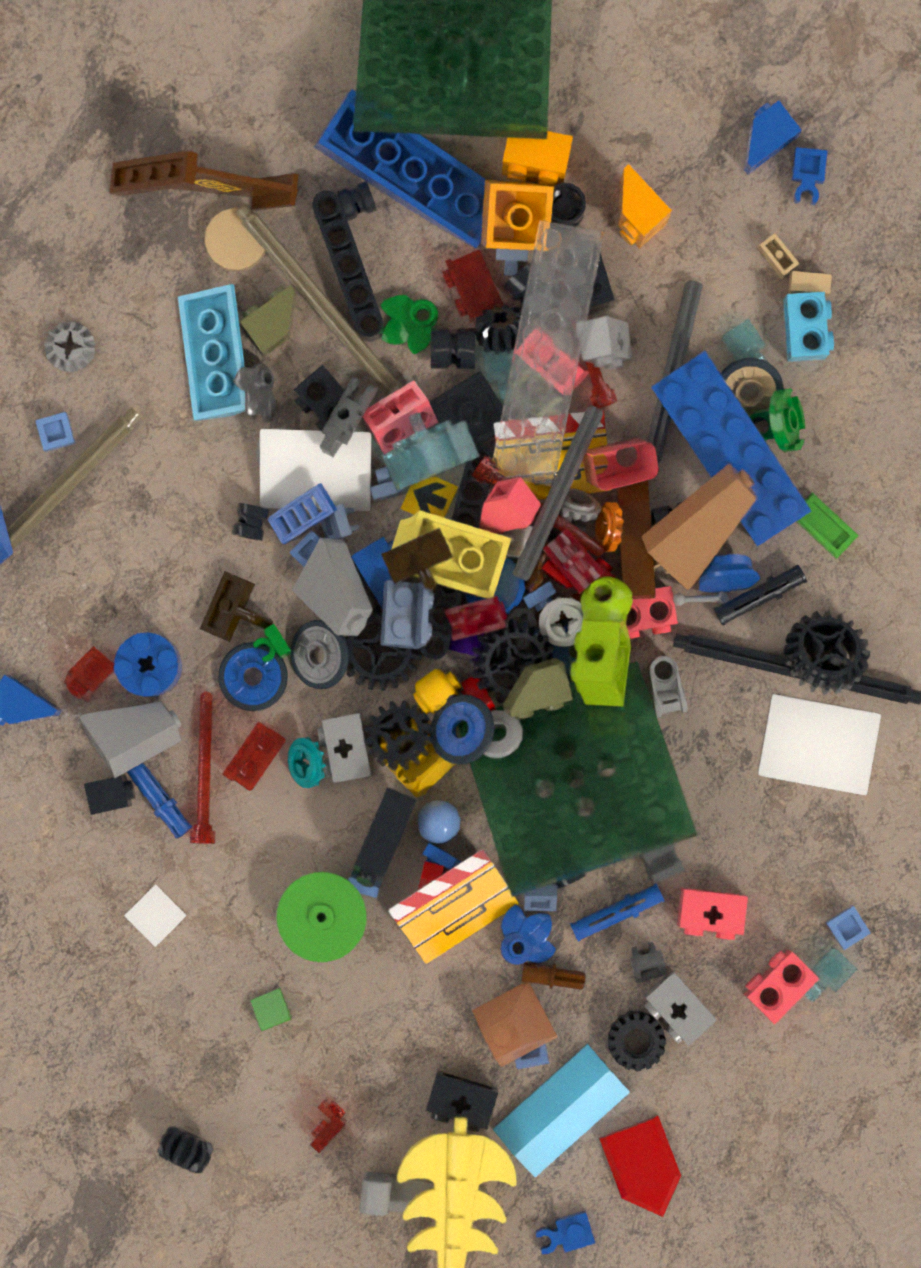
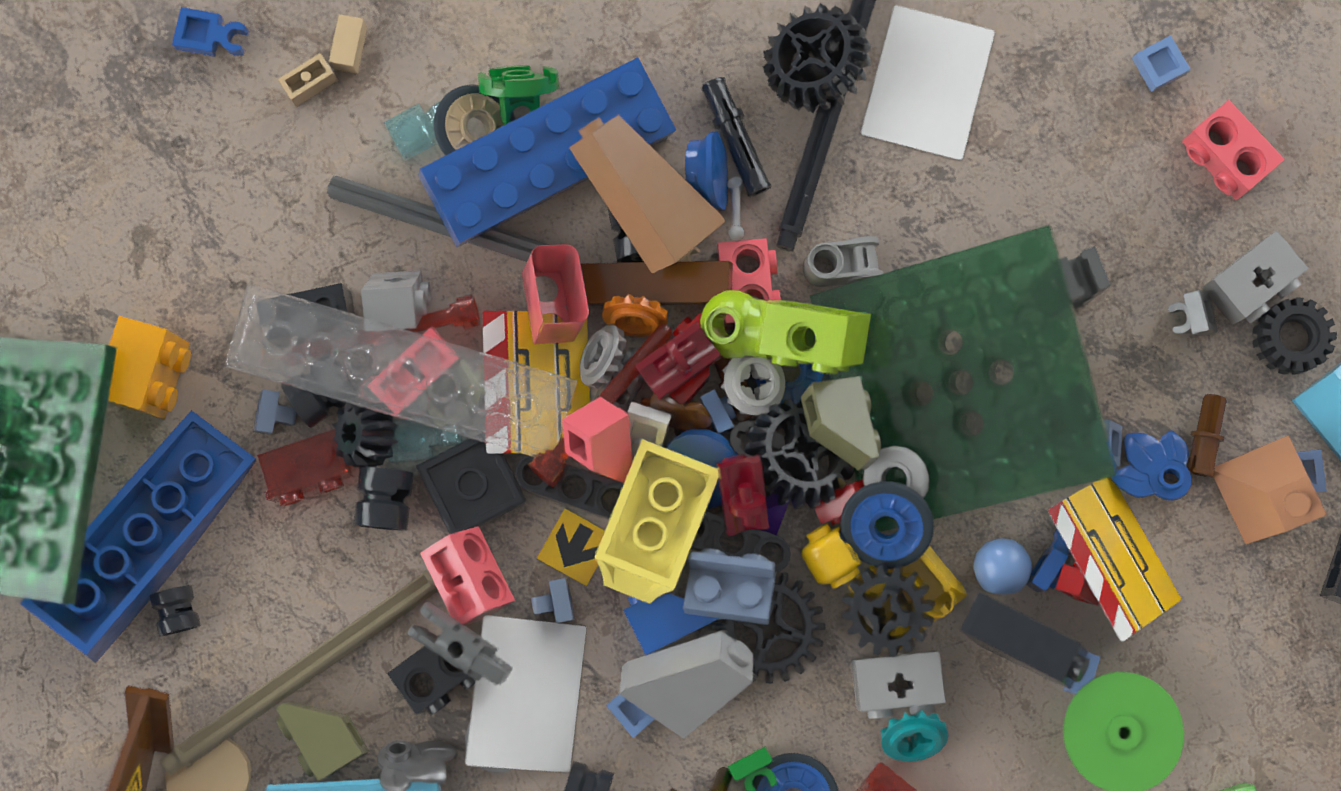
camera: 85 degrees left, 5 degrees down
(285, 523) = (595, 738): slope -> none
(303, 659) = (779, 729): flat silver wheel -> none
(337, 524) = (600, 671): sand blue tile -> none
(348, 251) = (240, 634): black beam -> none
(404, 324) = (346, 560): green plate -> none
(417, 558) = (658, 564): dark brown plate -> none
(429, 452) = (518, 539): clear light blue brick -> none
(514, 213) = (214, 402): light orange slope -> none
(558, 493) = (588, 375): dark grey axle -> none
(568, 205) = (208, 337): black wheel -> none
(640, 209) = (225, 243): light orange slope -> none
(651, 895) = (1128, 347): blue pin -> none
(730, 906) = (1121, 245): coral brick -> none
(769, 134) = (151, 77): blue slope -> none
(799, 326) = (399, 61): medium azure brick -> none
(826, 527) = (659, 46): bright green tile -> none
(832, 972) = (1216, 85): clear light blue plate -> none

